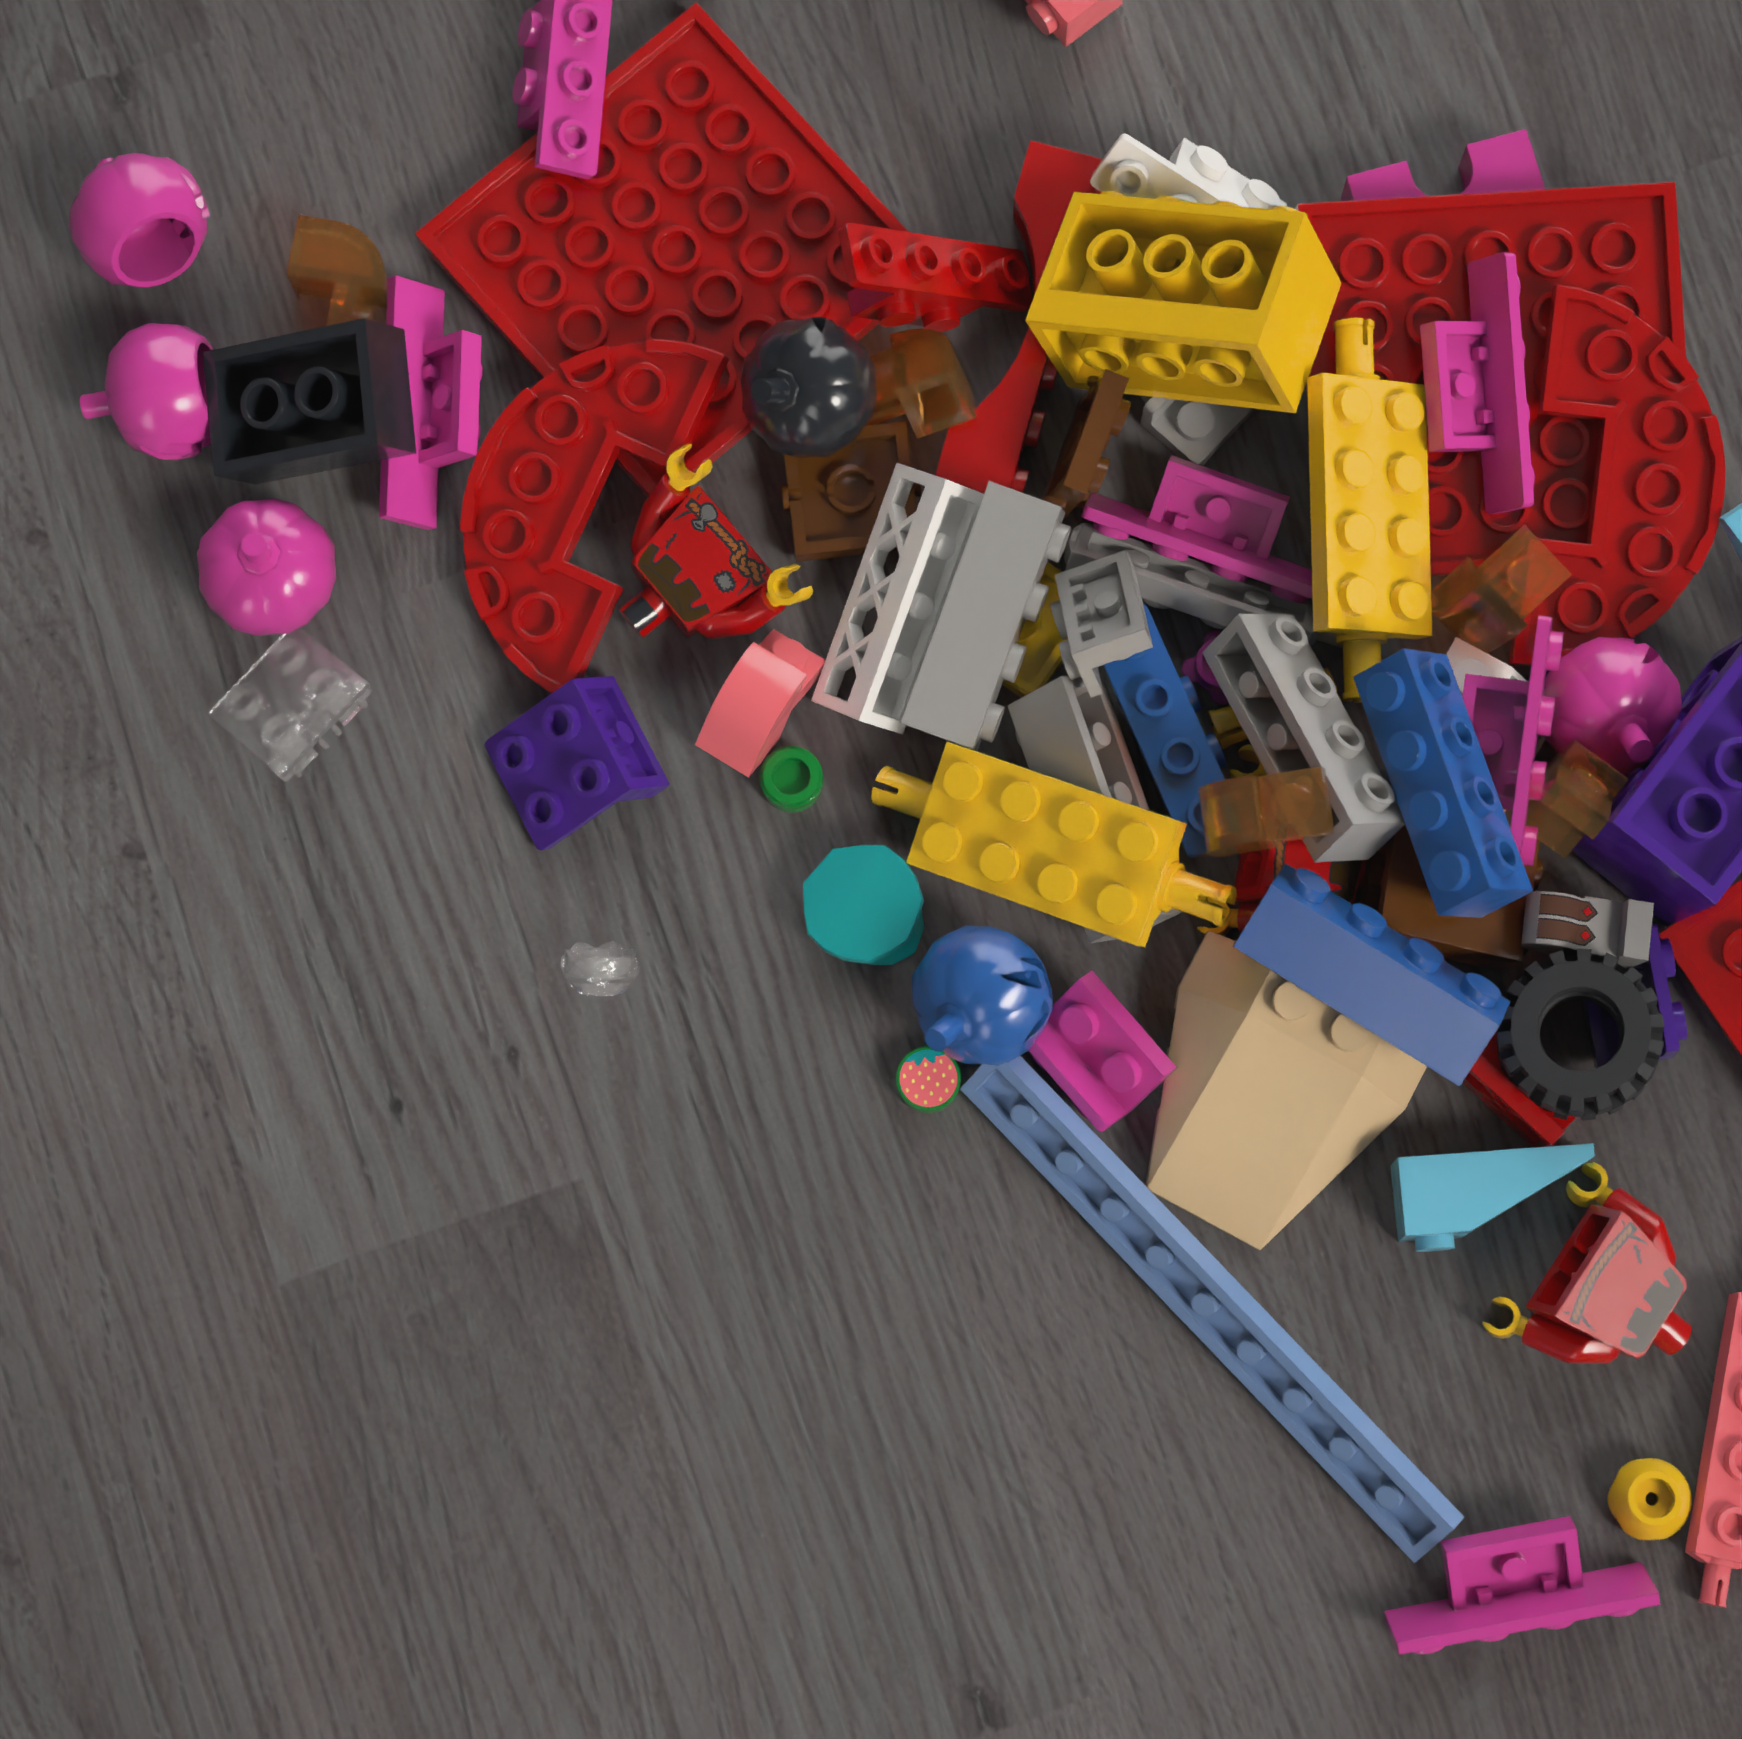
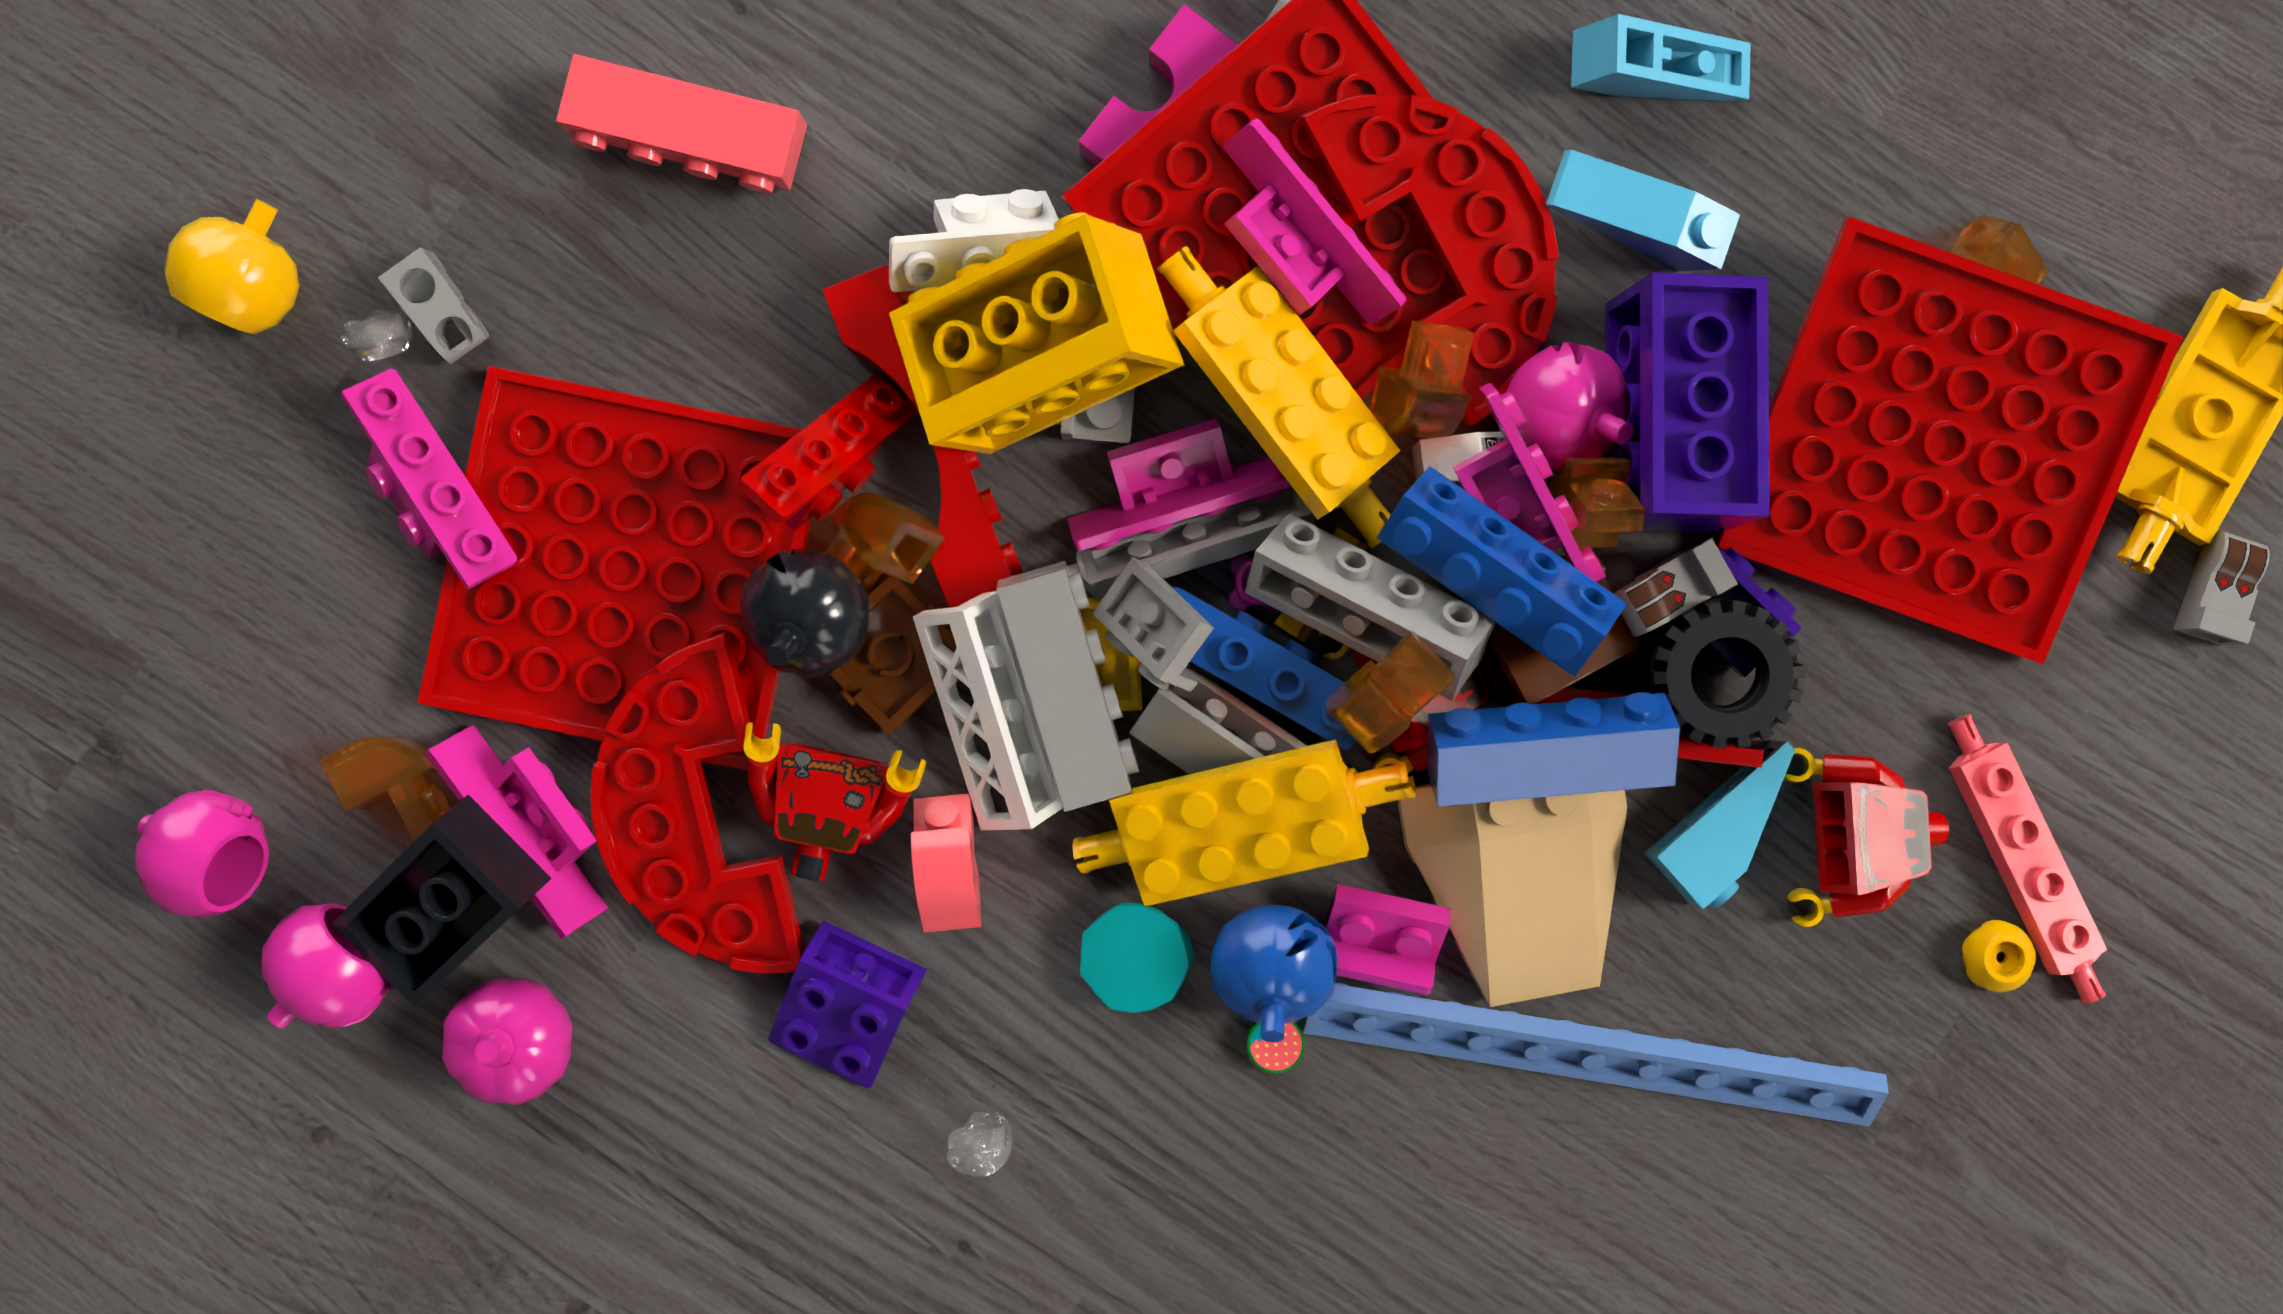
camera: 40 degrees left, 10 degrees up
(291, 703) = (605, 1121): clear hinge -> none
(791, 779) = (1010, 898): green tile -> none
(1080, 464) = (1046, 516): reddish brown plate -> none
(1516, 1584) = (1957, 1093): dark pink bracket -> none

